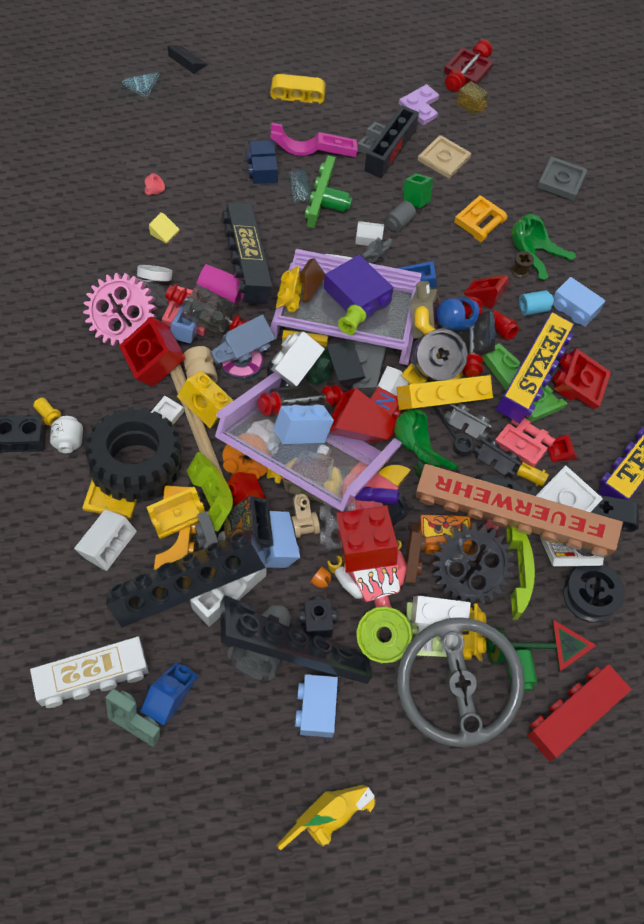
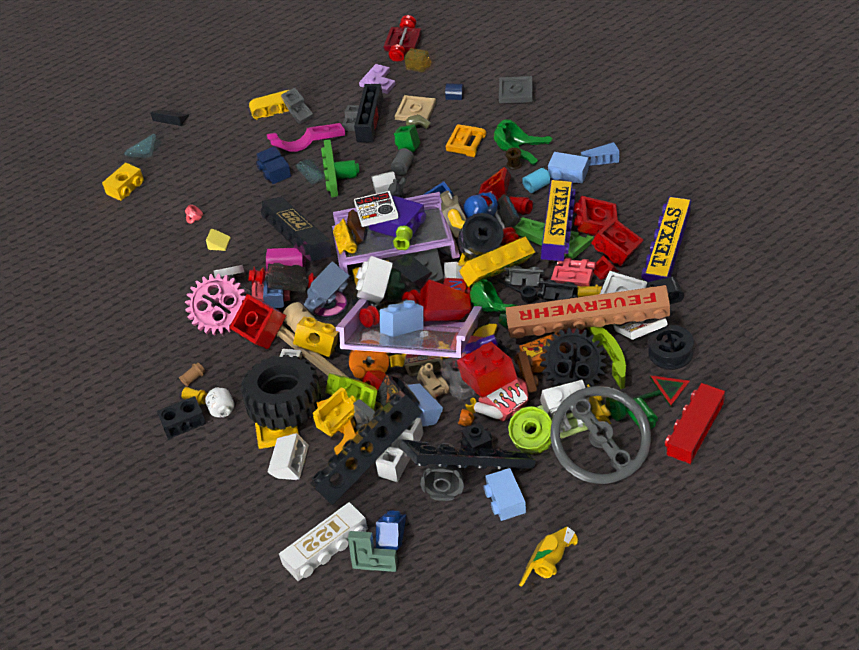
camera: 10 degrees left, 15 degrees down
(57, 383) = (192, 374): none -> medium nougat pin
(101, 115) = (123, 181): none -> yellow brick
(320, 101) = (296, 106): none -> dark grey slope
(338, 270) = (375, 208): none -> tile
(440, 172) = (418, 120): none -> olive arm
(495, 152) = (454, 91): none -> dark blue brick
(591, 424) = (616, 241): none -> red plate
(623, 302) = (605, 154): none -> medium blue slope

